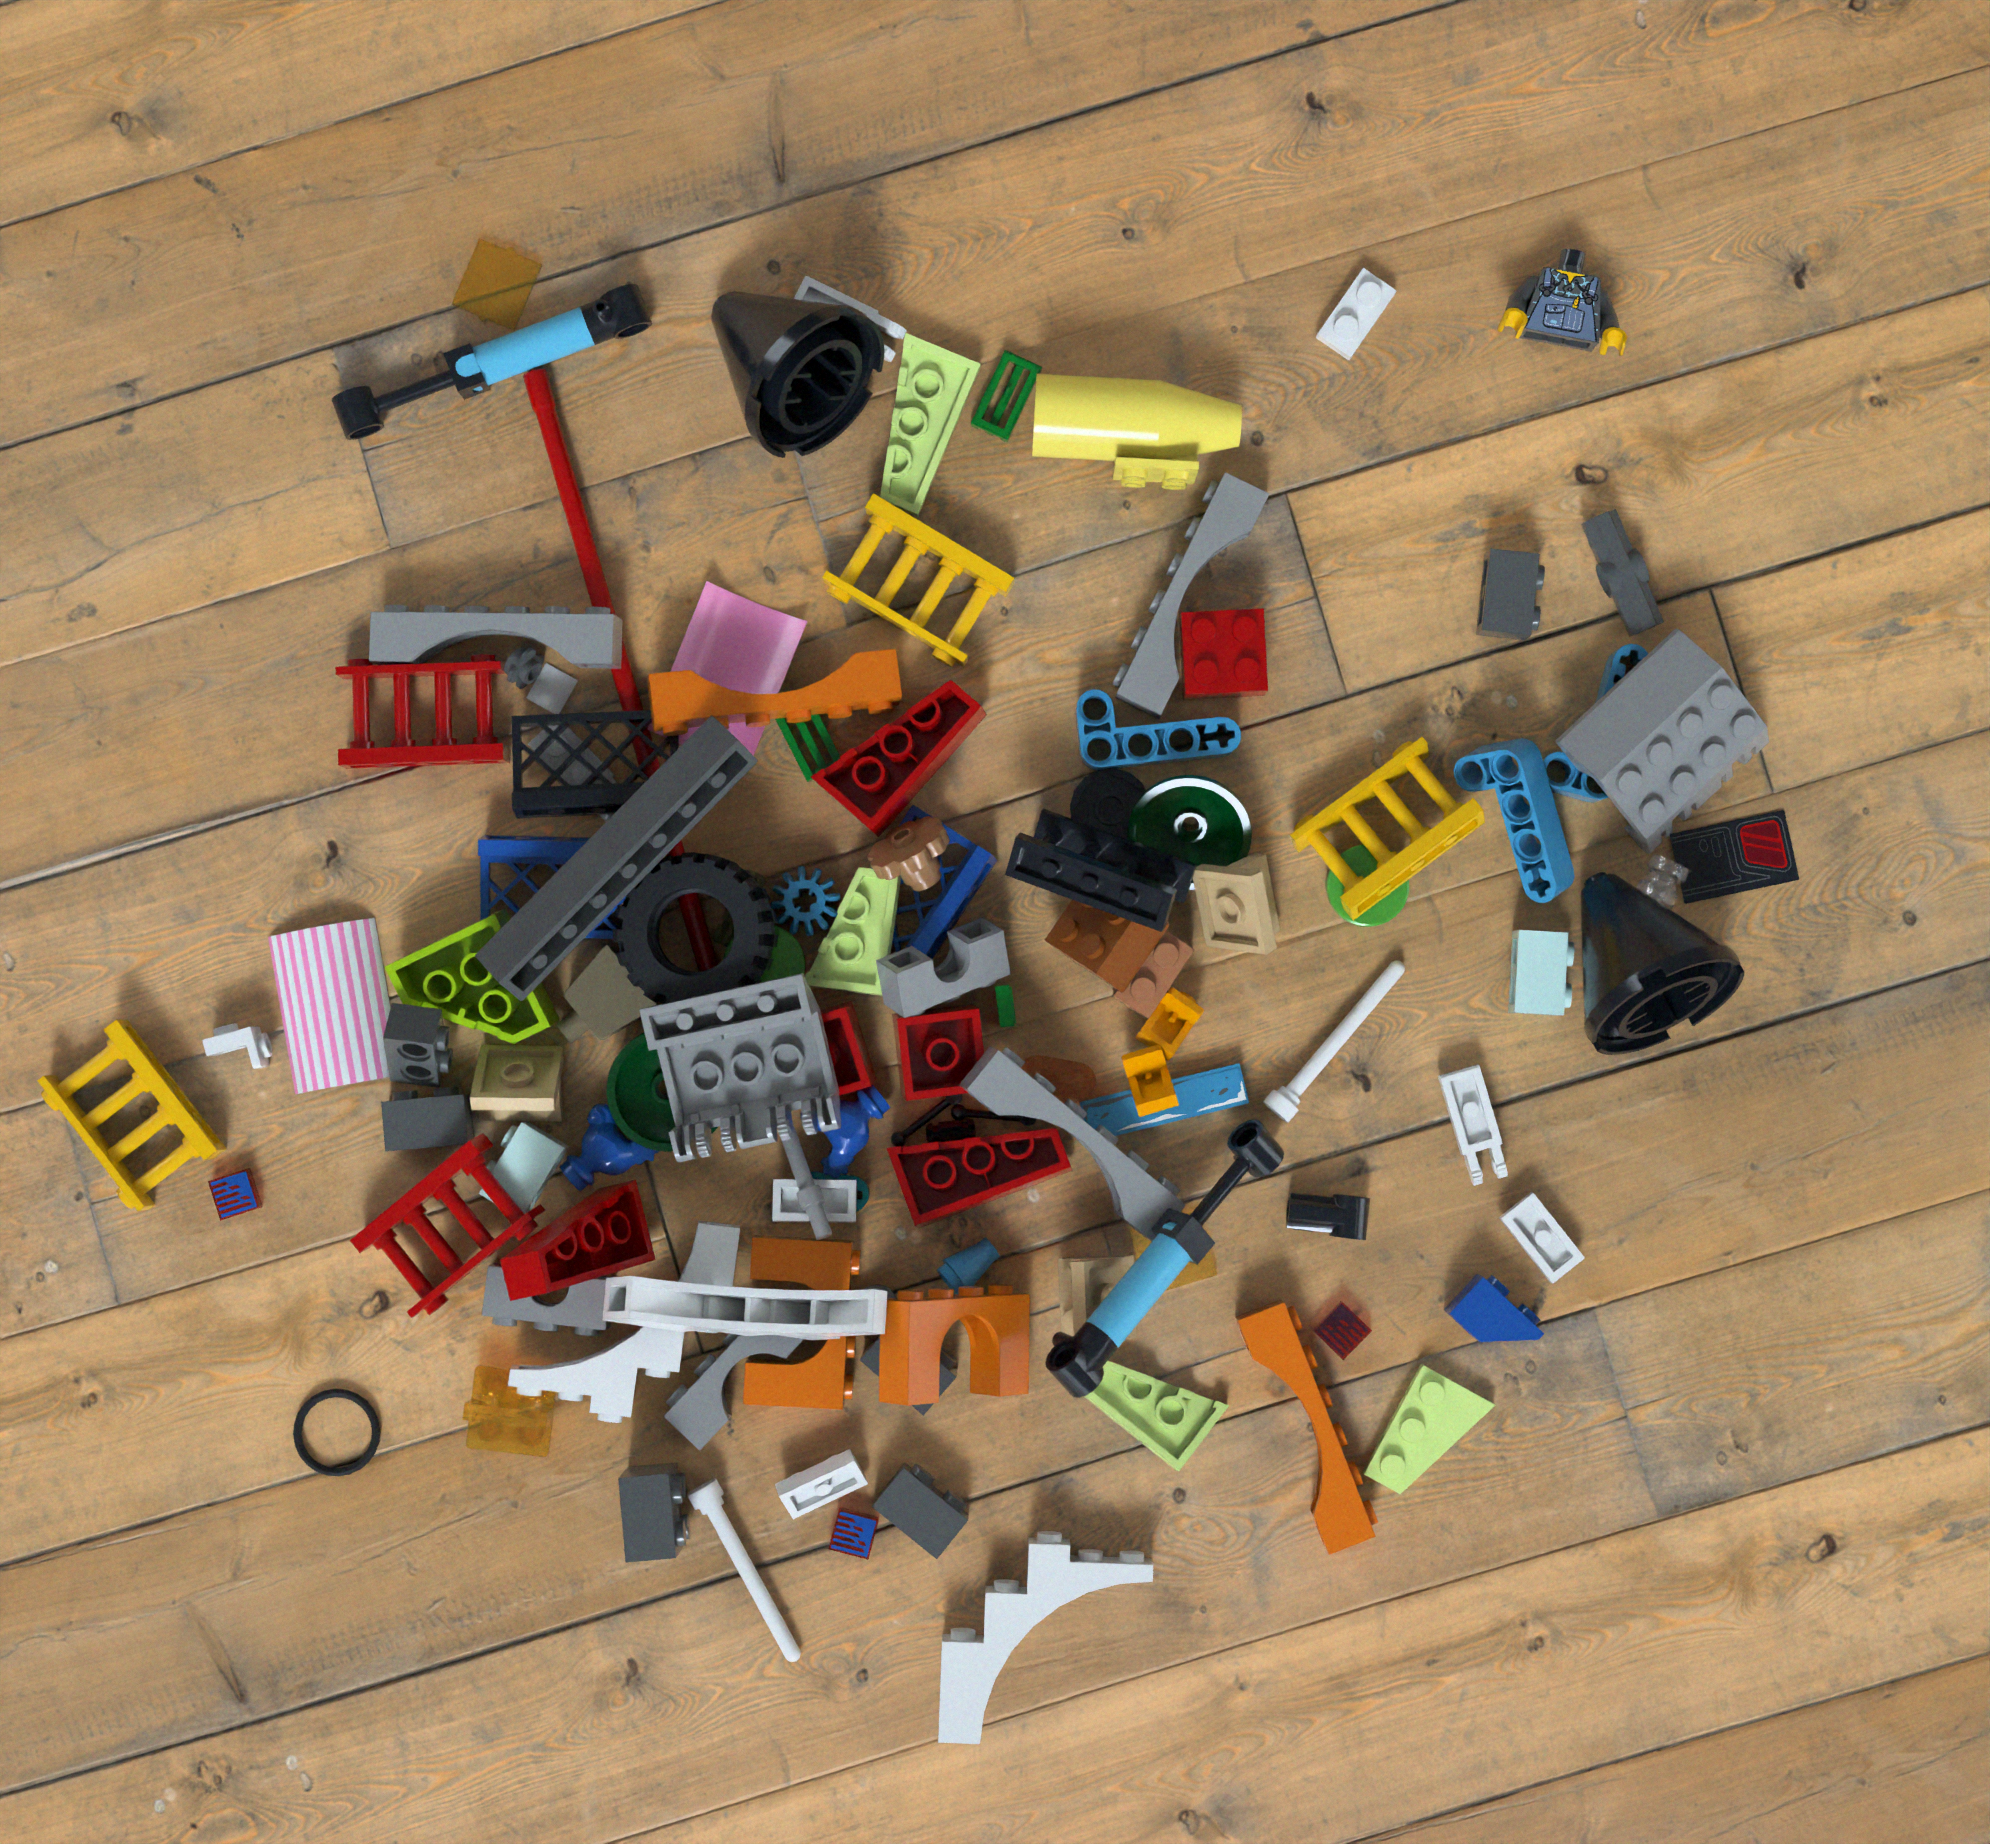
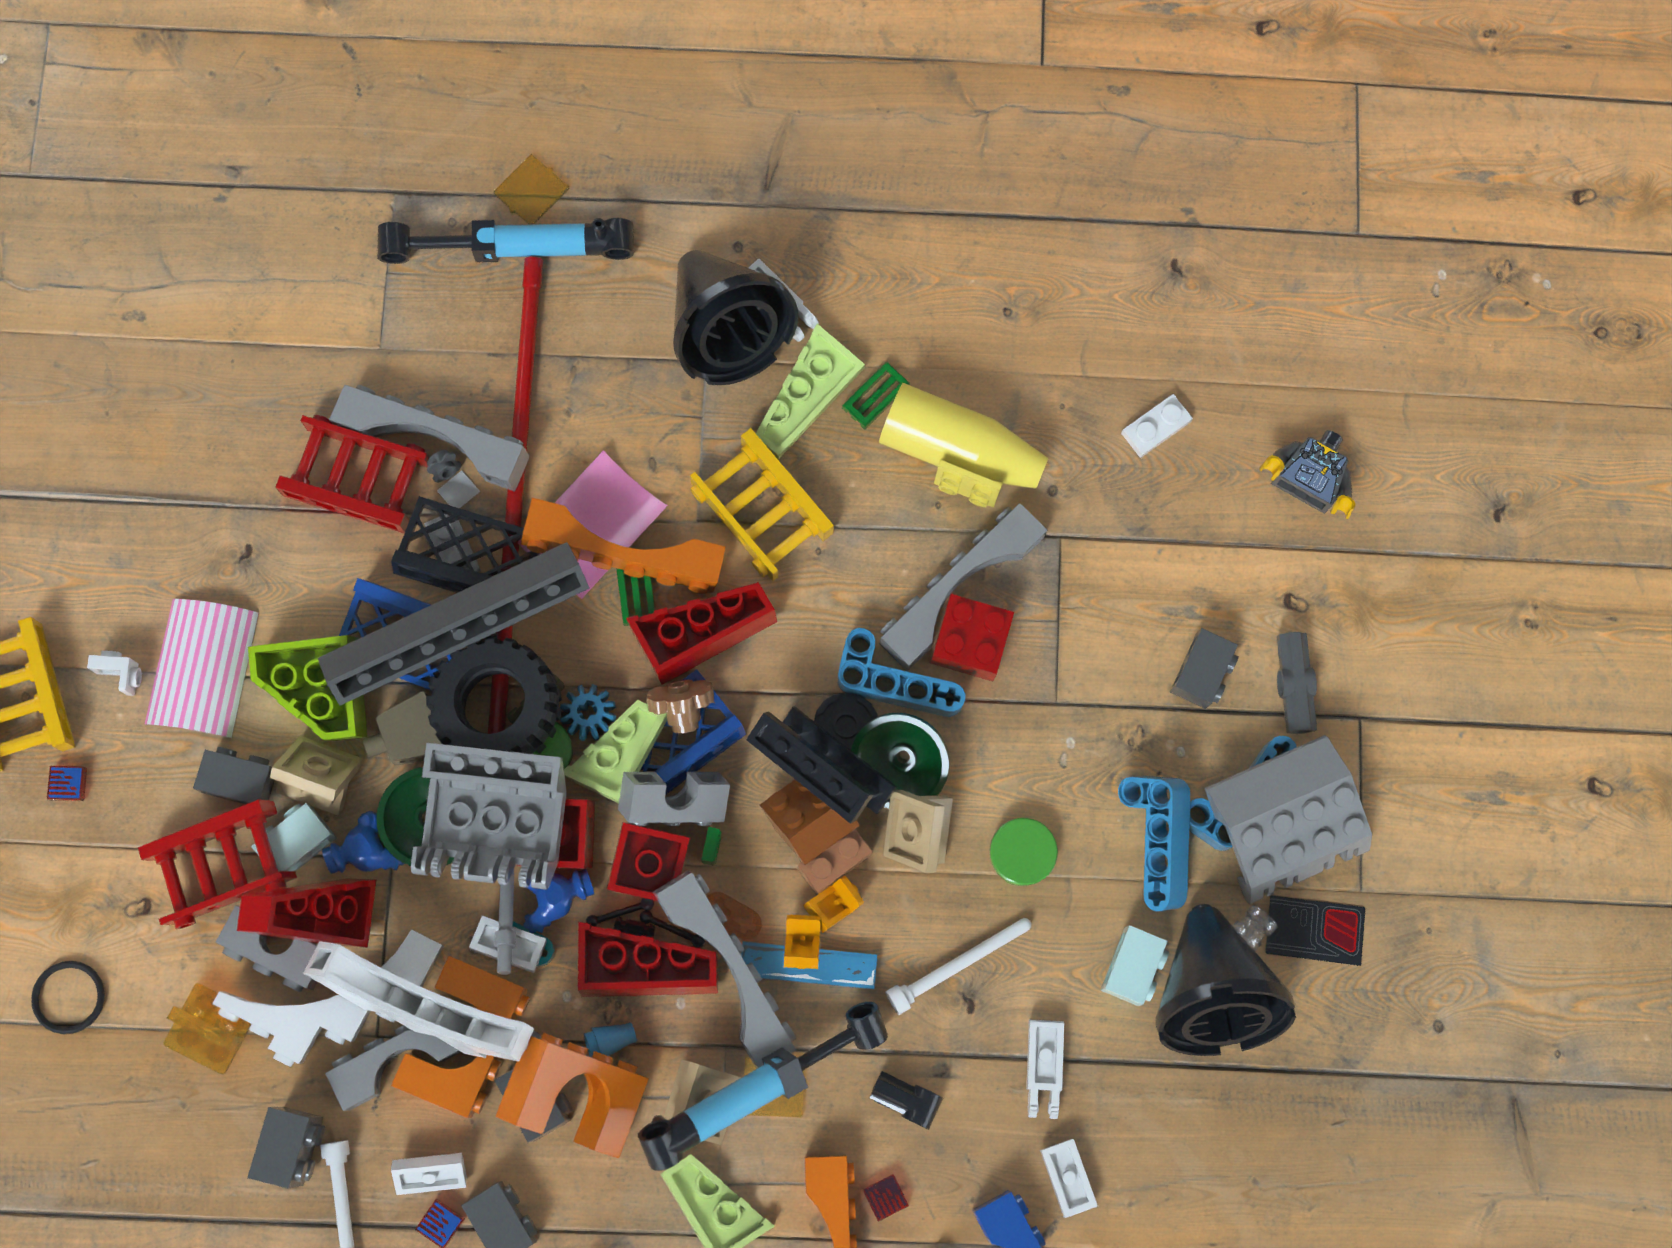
camera: 10 degrees right, 10 degrees down
(417, 1045) = (249, 715): dark grey brick -> none
(1392, 868) = (1048, 843): yellow fence -> none

